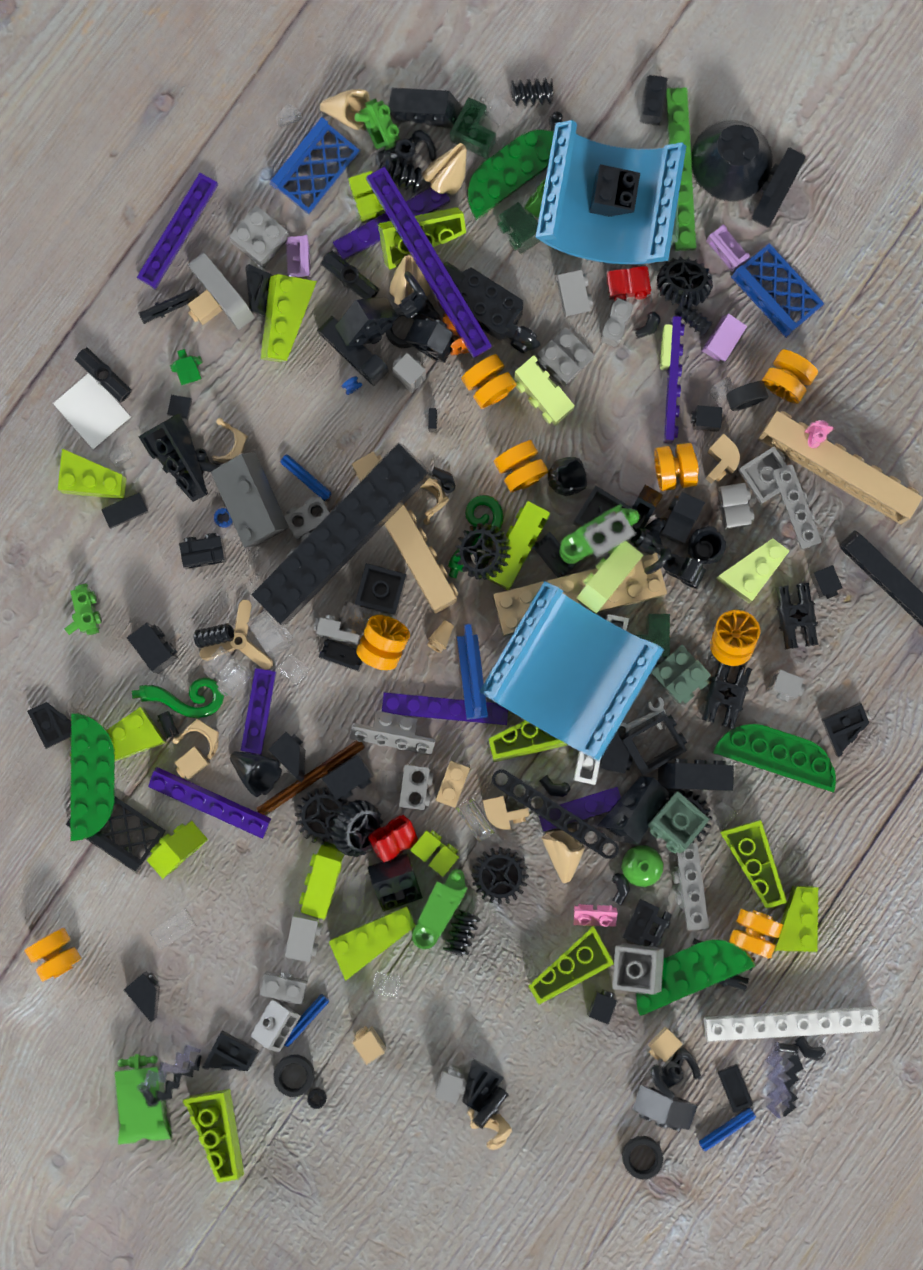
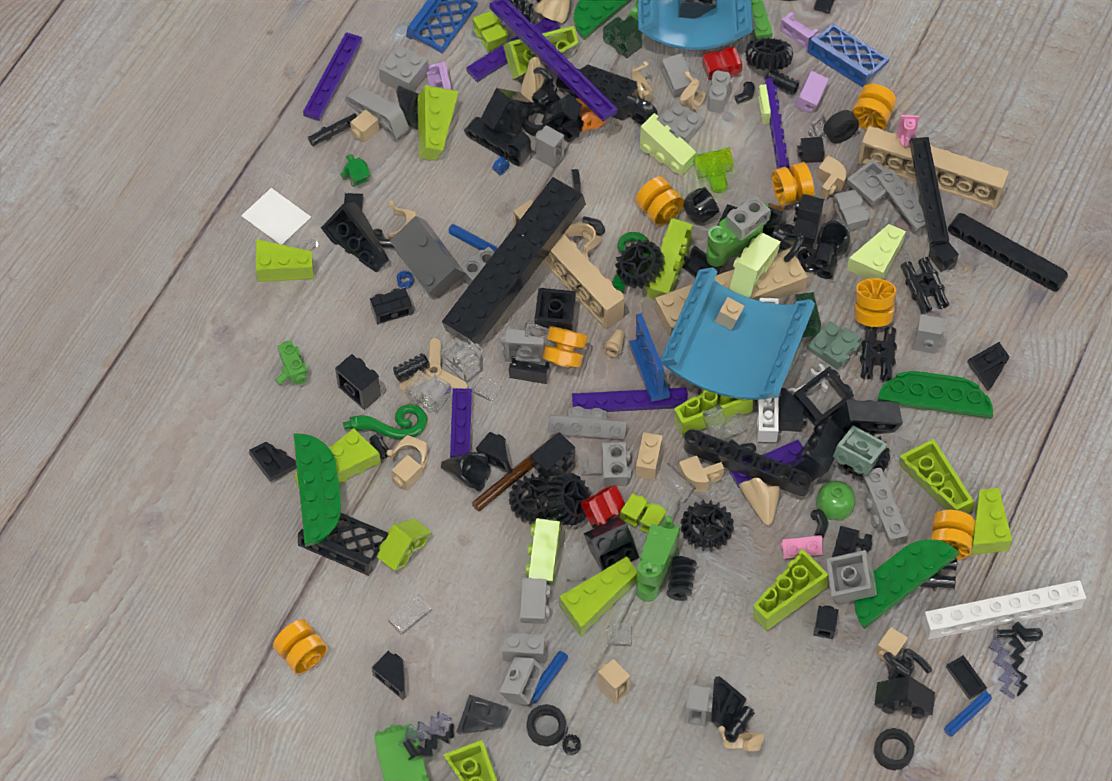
camera: 10 degrees left, 25 degrees down
(95, 366) = (284, 185): black piece -> none
(124, 510) = (316, 286): black tile -> none
(209, 802) = (428, 503): dark purple plate -> none
(340, 268) = (482, 86): black piece -> none
(491, 387) = (619, 143): light orange wheel -> none
(527, 292) = (641, 82): none -> tan helmet
(534, 765) = (723, 428): none -> clear plate
(568, 638) = (729, 313): none -> tan brick
(587, 325) = (687, 97): none -> tan helmet
(592, 426) = (714, 166): none -> clear neon green brick
(826, 508) = (929, 190): none -> black plate

